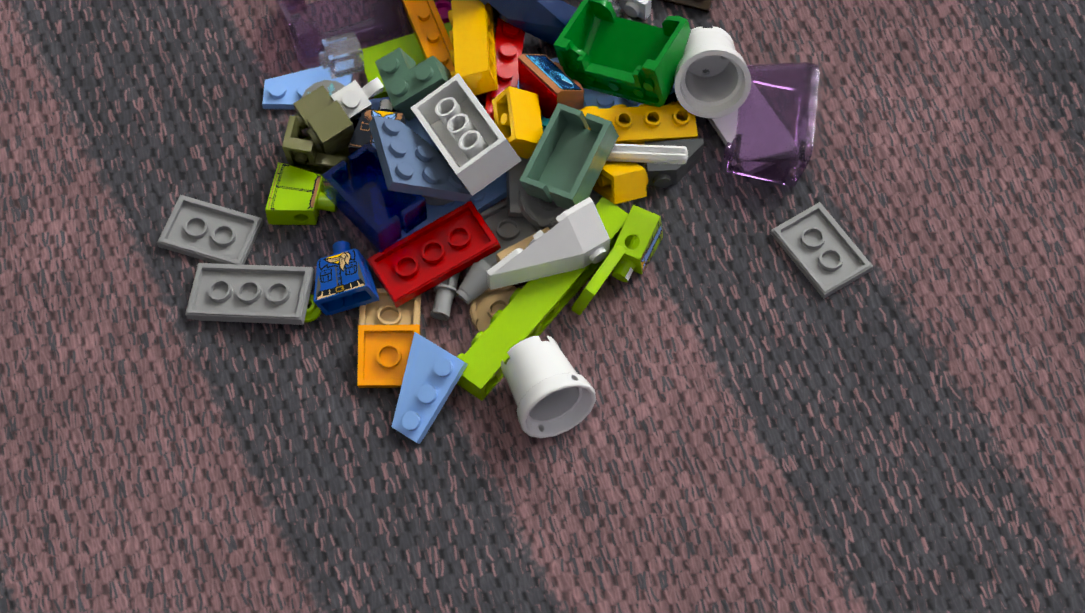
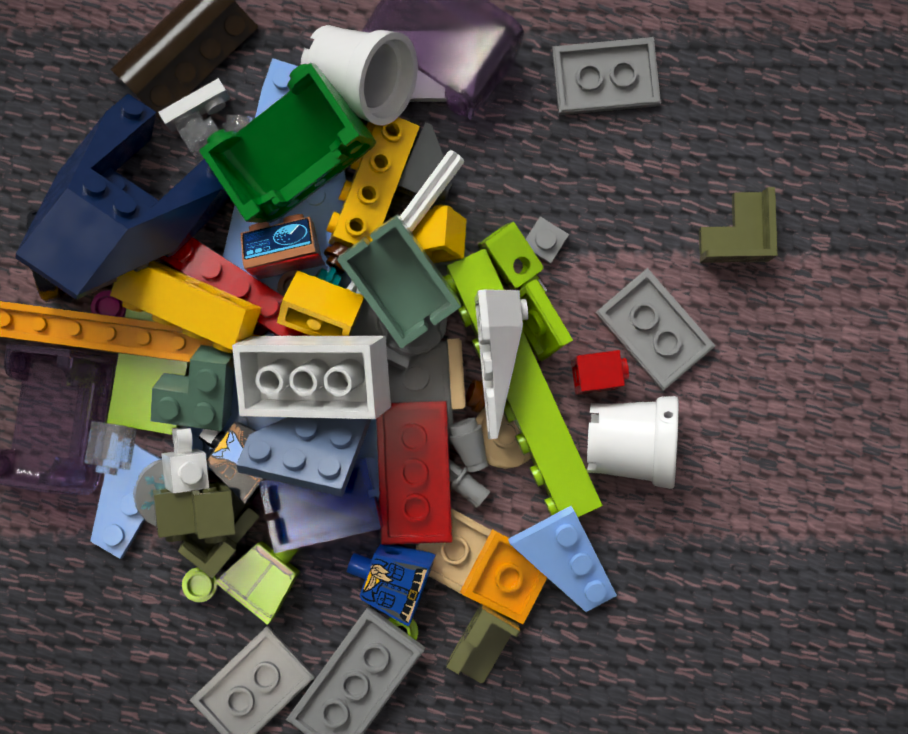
camera: 60 degrees left, 25 degrees up
(268, 160) = (198, 585): none -> lime plate
(330, 361) = (482, 643): none -> olive panel
(582, 337) = (599, 372): none -> red brick
(643, 375) = (655, 329): none -> light grey tile
(666, 267) = (546, 240): none -> light grey plate
(755, 406) = (752, 234): none -> olive panel

